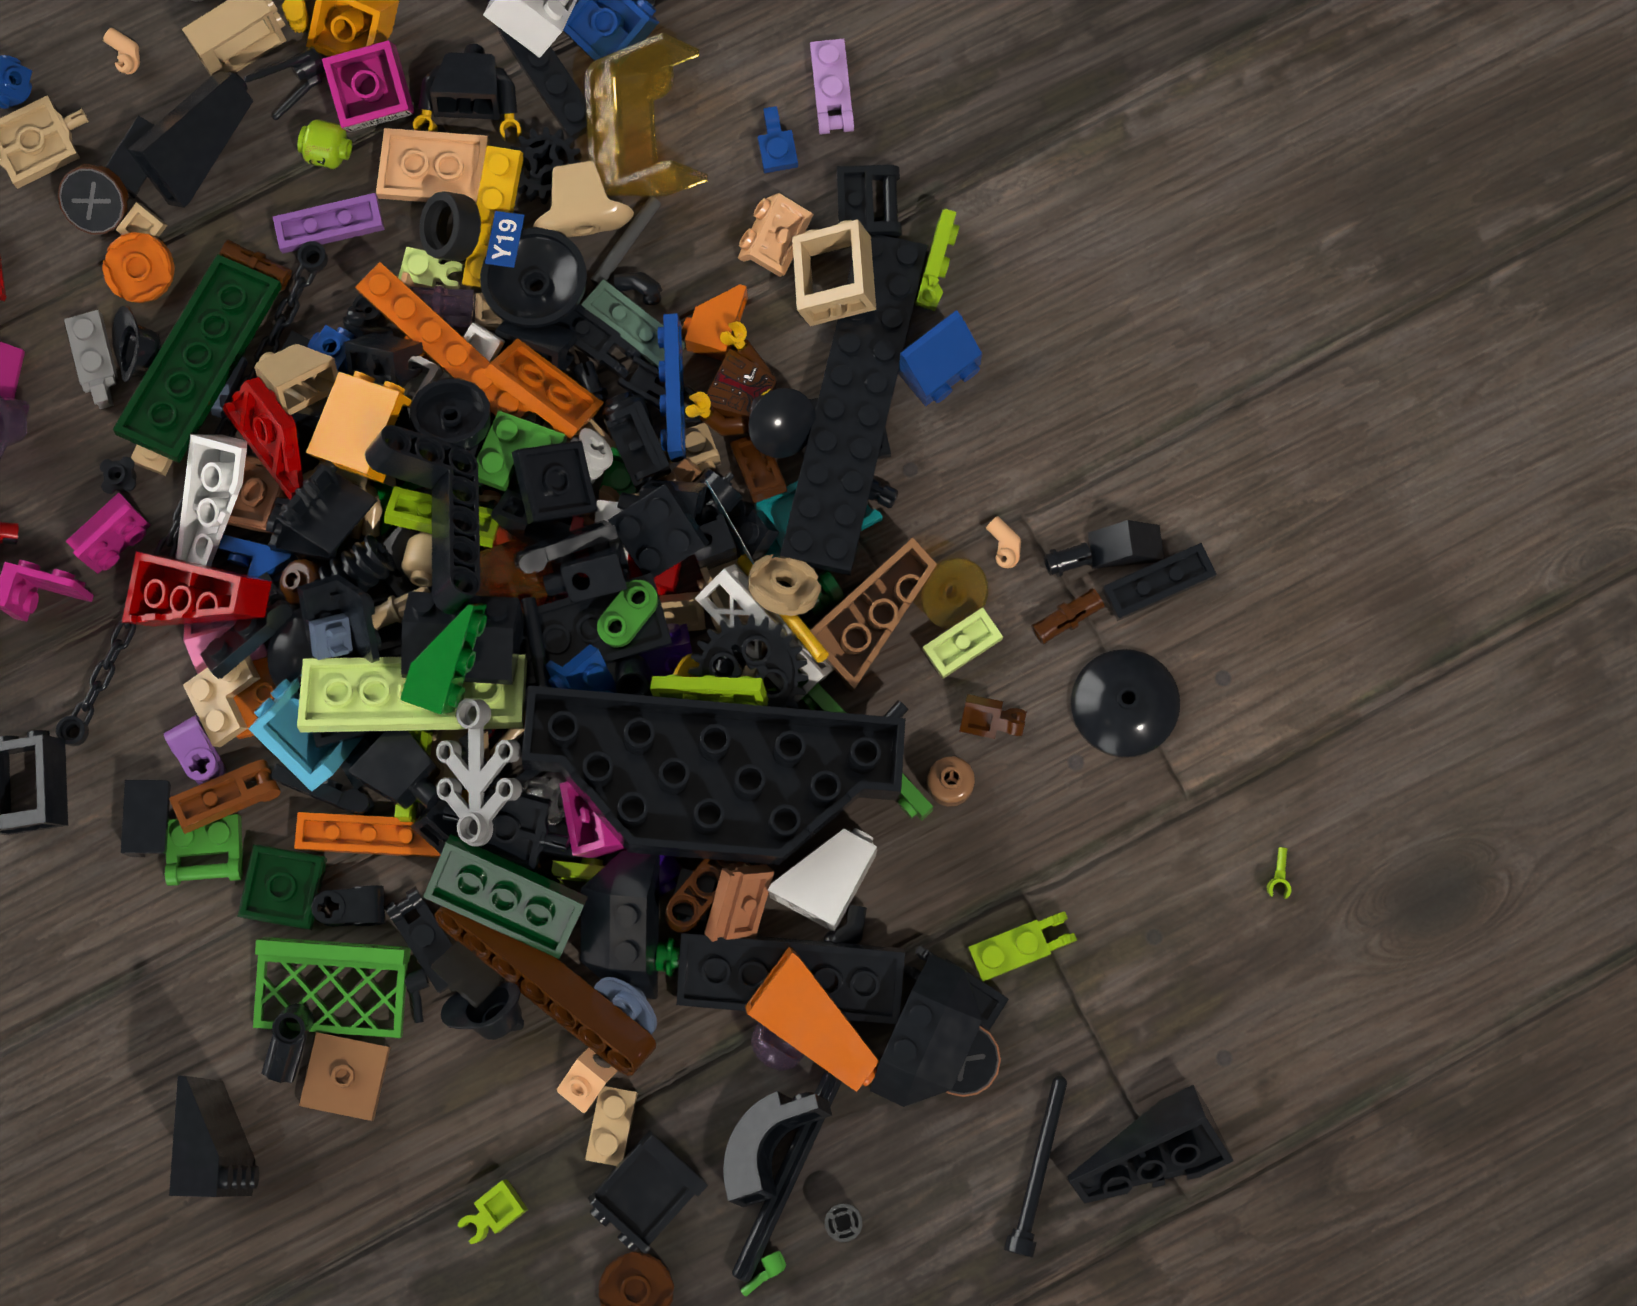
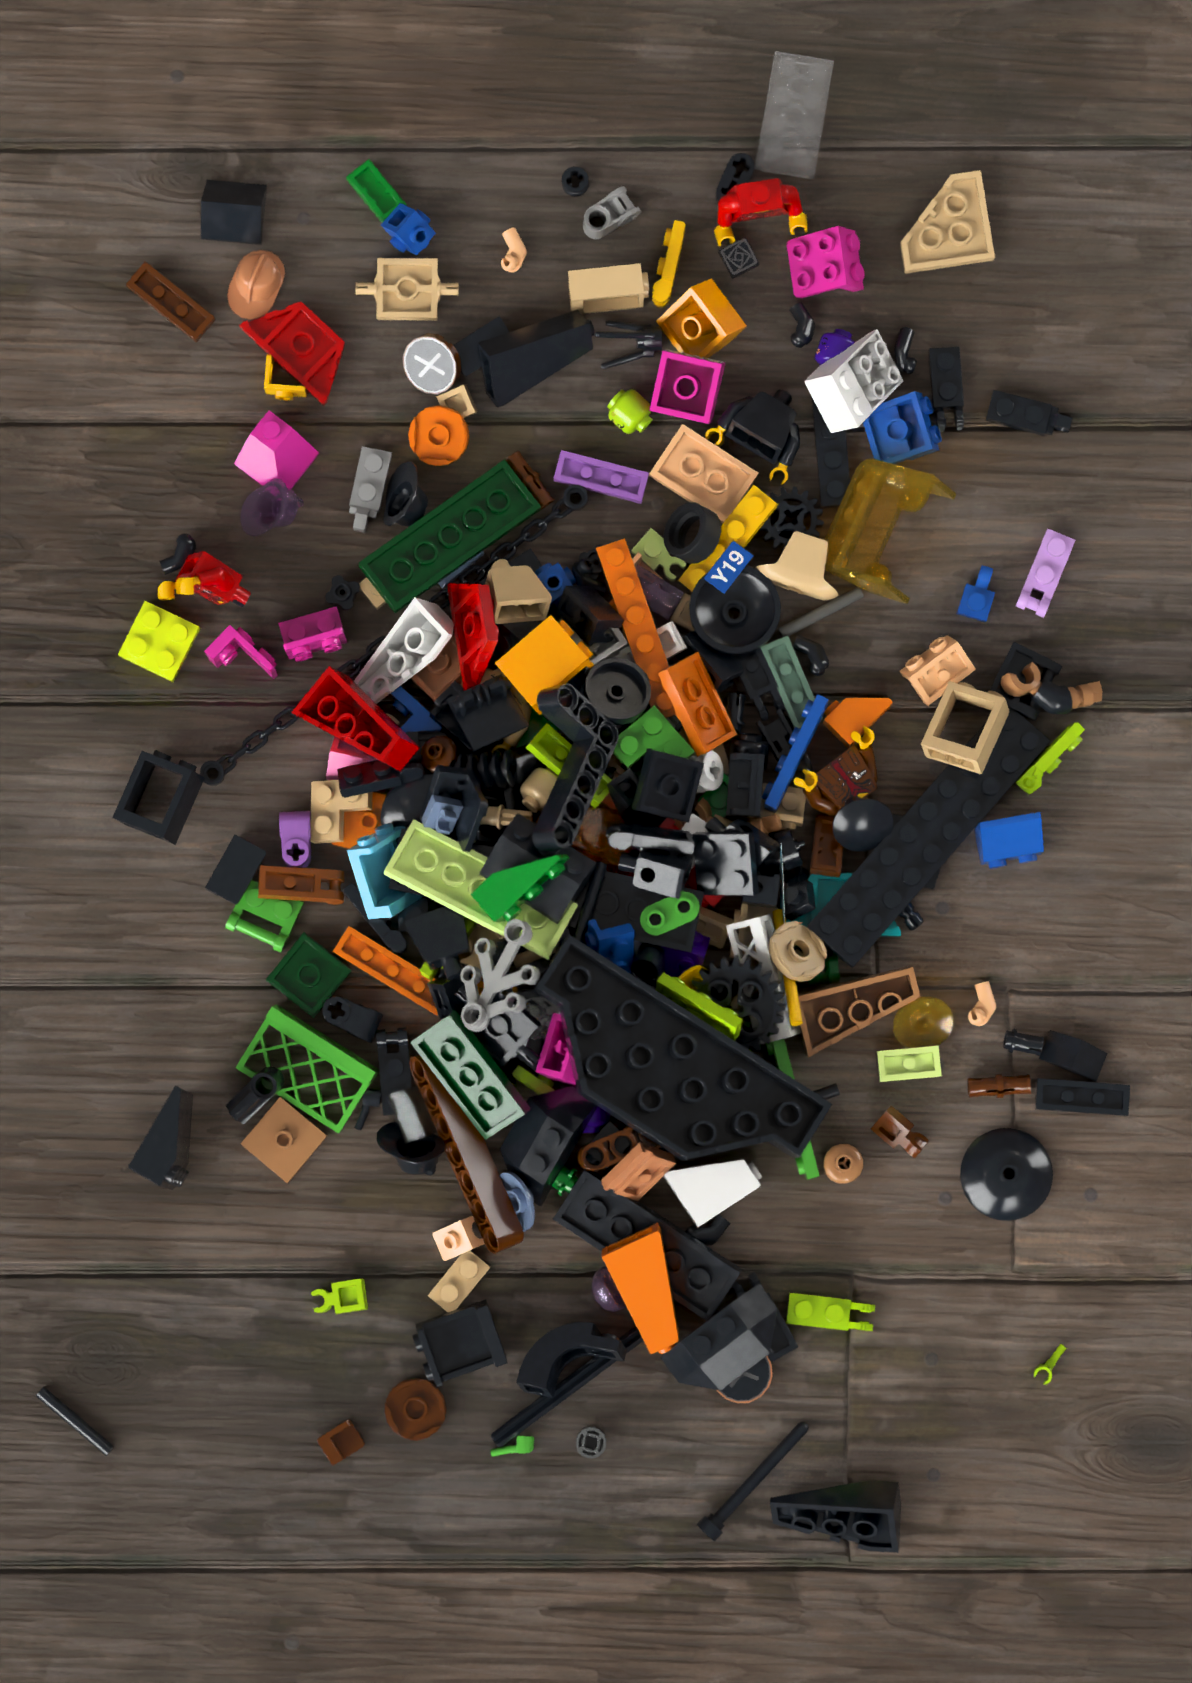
camera: 25 degrees right, 5 degrees up
(902, 199) = (1049, 696): none -> medium nougat piece

